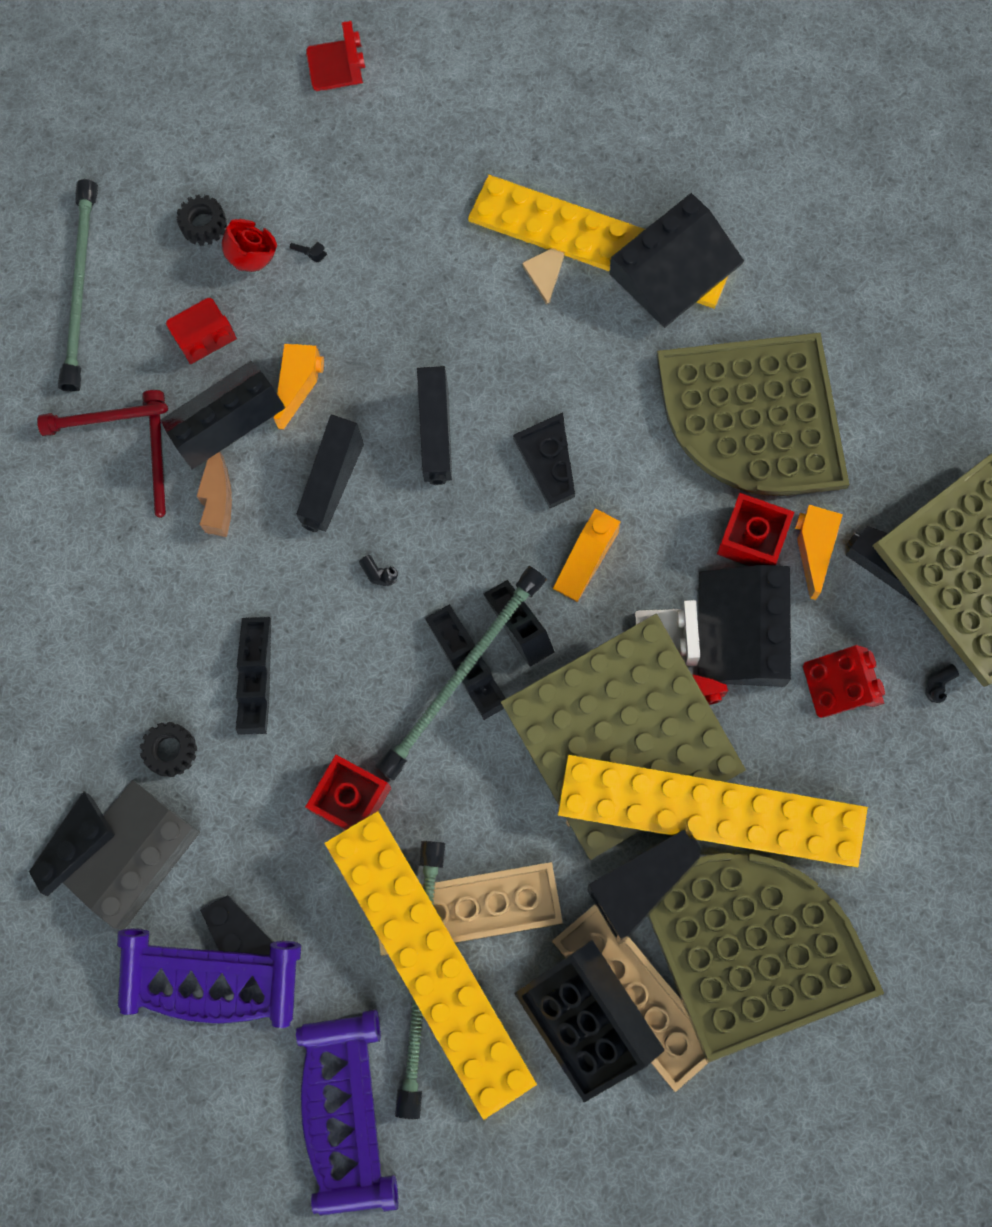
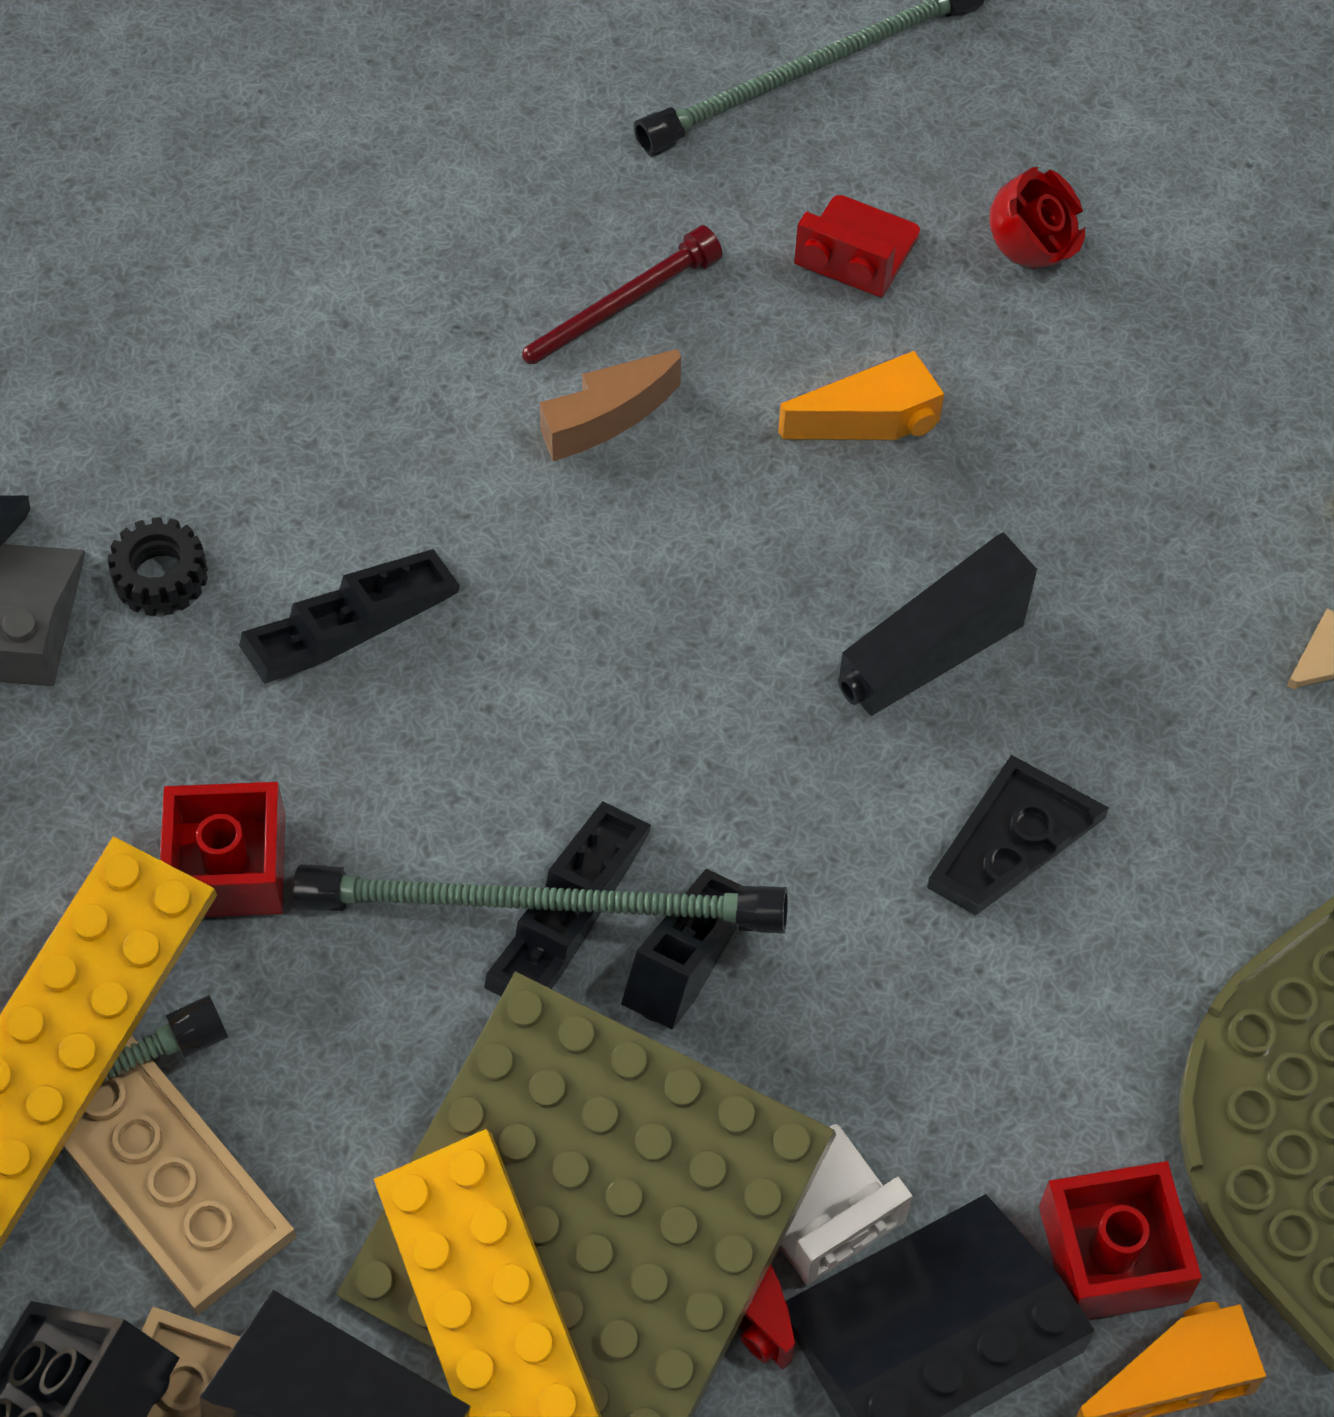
camera: 50 degrees right, 15 degrees down
(50, 424) = (571, 147): dark red piece -> none
(198, 207) = (1034, 128): black tyre -> none
(222, 414) = (732, 335): black slope -> none
(315, 253) = (1104, 319): black hand -> none
(330, 473) = (749, 529): black slope -> none
(378, 575) = (630, 694): black arm -> none
(587, 554) = (885, 986): light orange slope -> none

